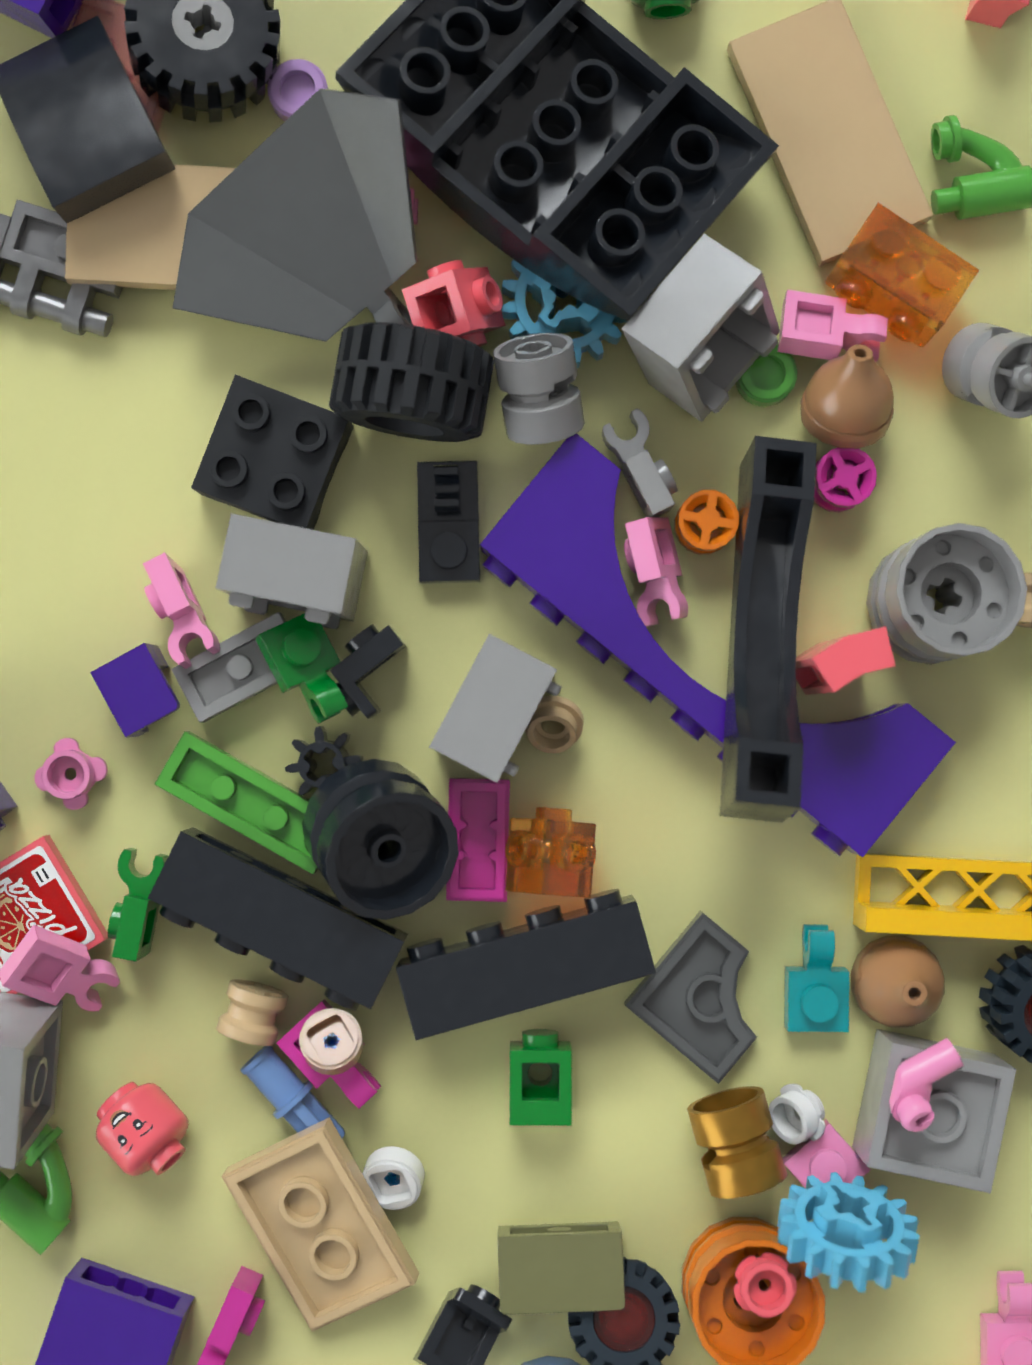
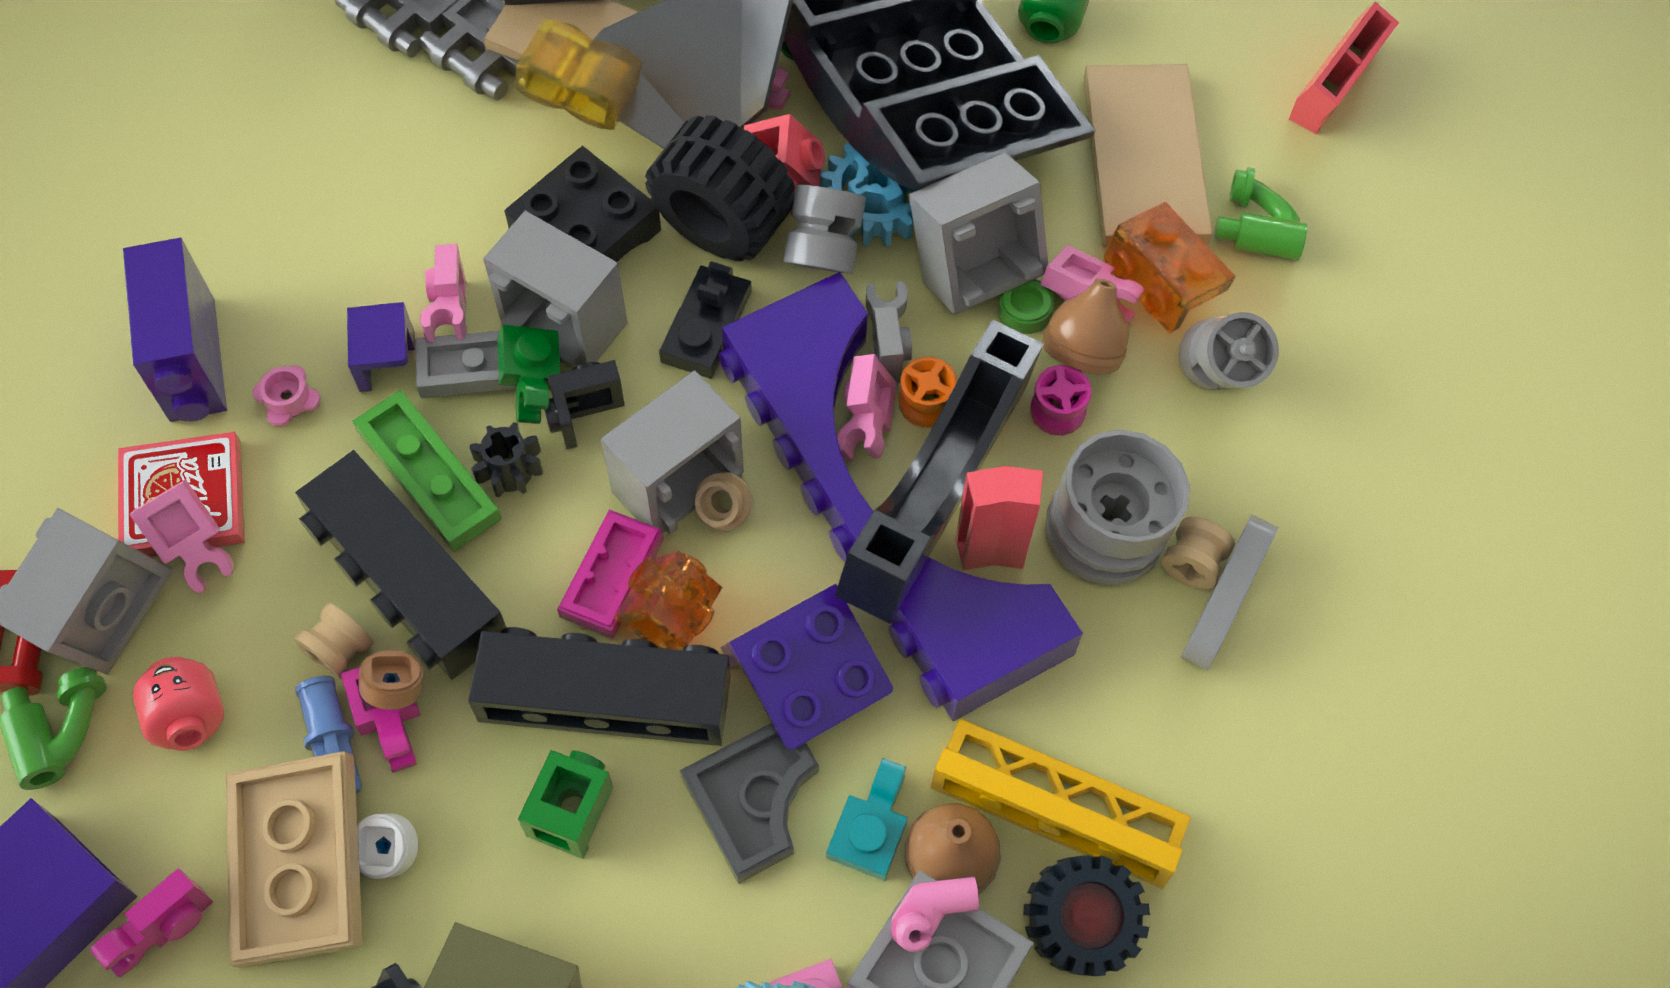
camera: 15 degrees right, 25 degrees down
(135, 919) = (275, 525): green plate -> none
(197, 298) = (578, 74): none -> clear yellow brick
(380, 839) = (559, 518): black wheel -> none
(701, 865) = (810, 667): none -> dark purple bracket
(739, 1152) = (732, 922): pearl gold wheel -> none
(797, 1115) = (802, 936): white plate -> none

